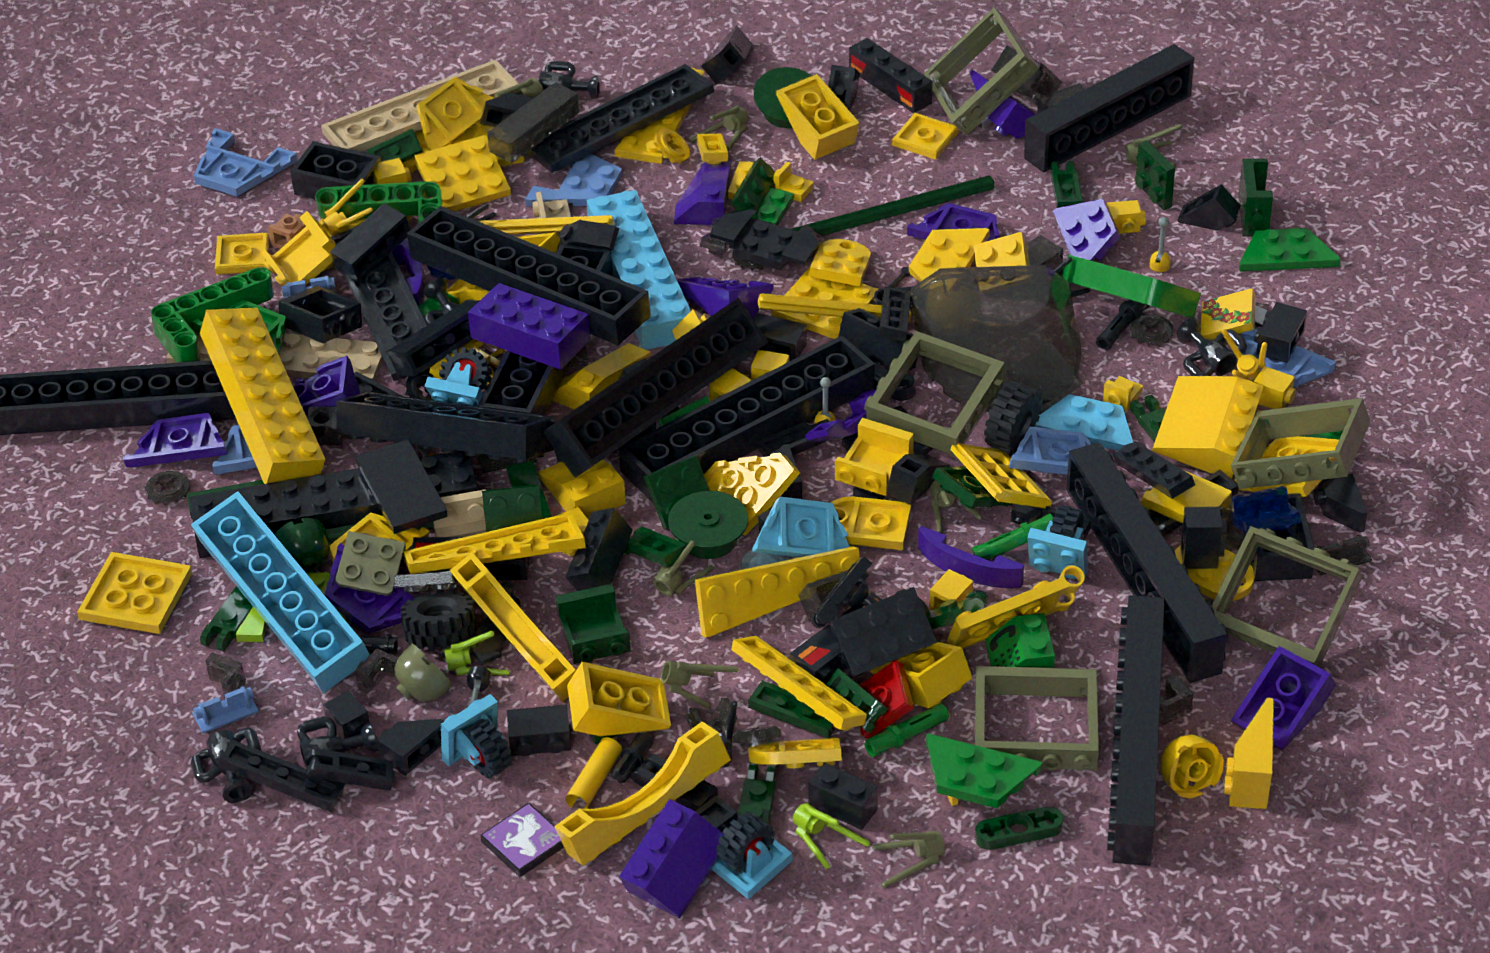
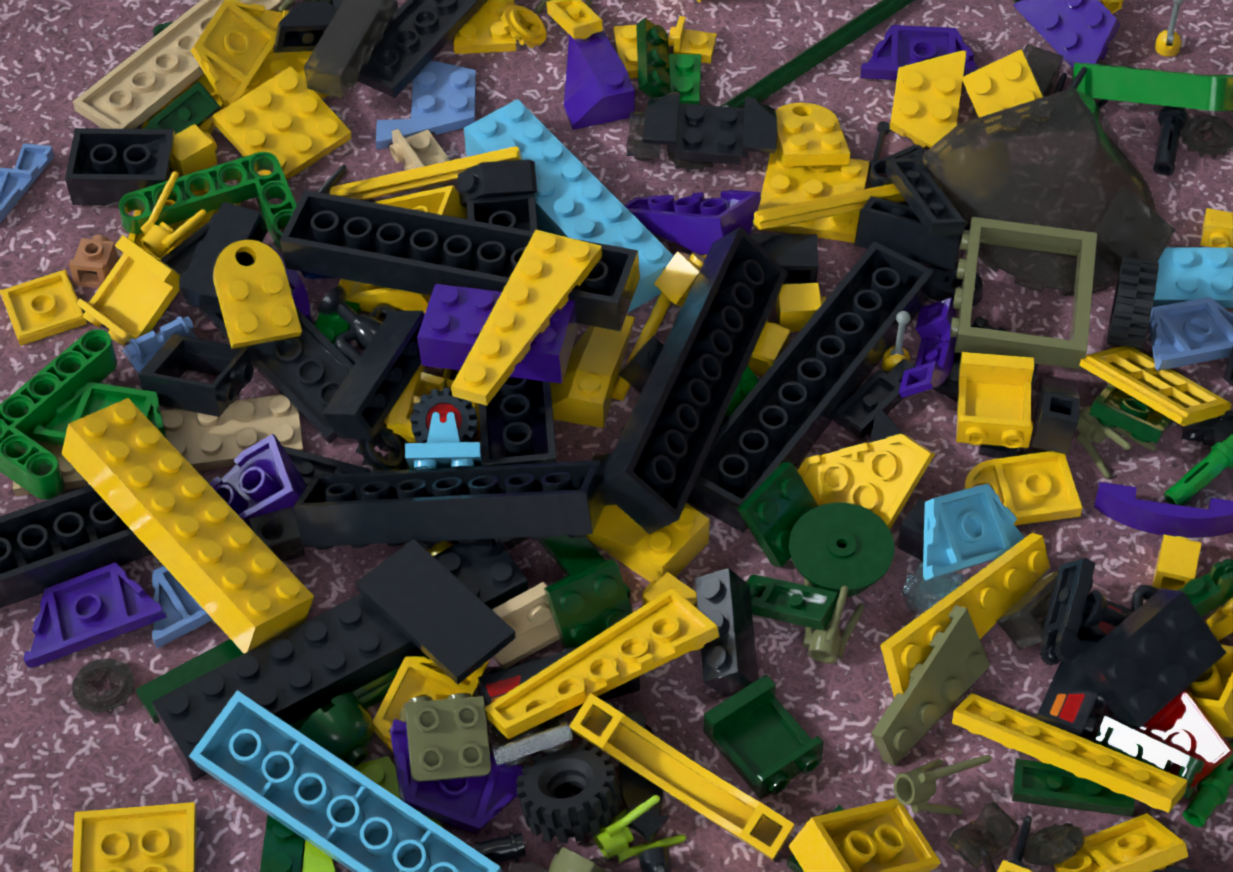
camera: 20 degrees left, 10 degrees up
(378, 271) = (255, 297): none -> yellow plate
(545, 308) = (530, 298): none -> yellow wing
(739, 615) = (933, 687): none -> olive wing

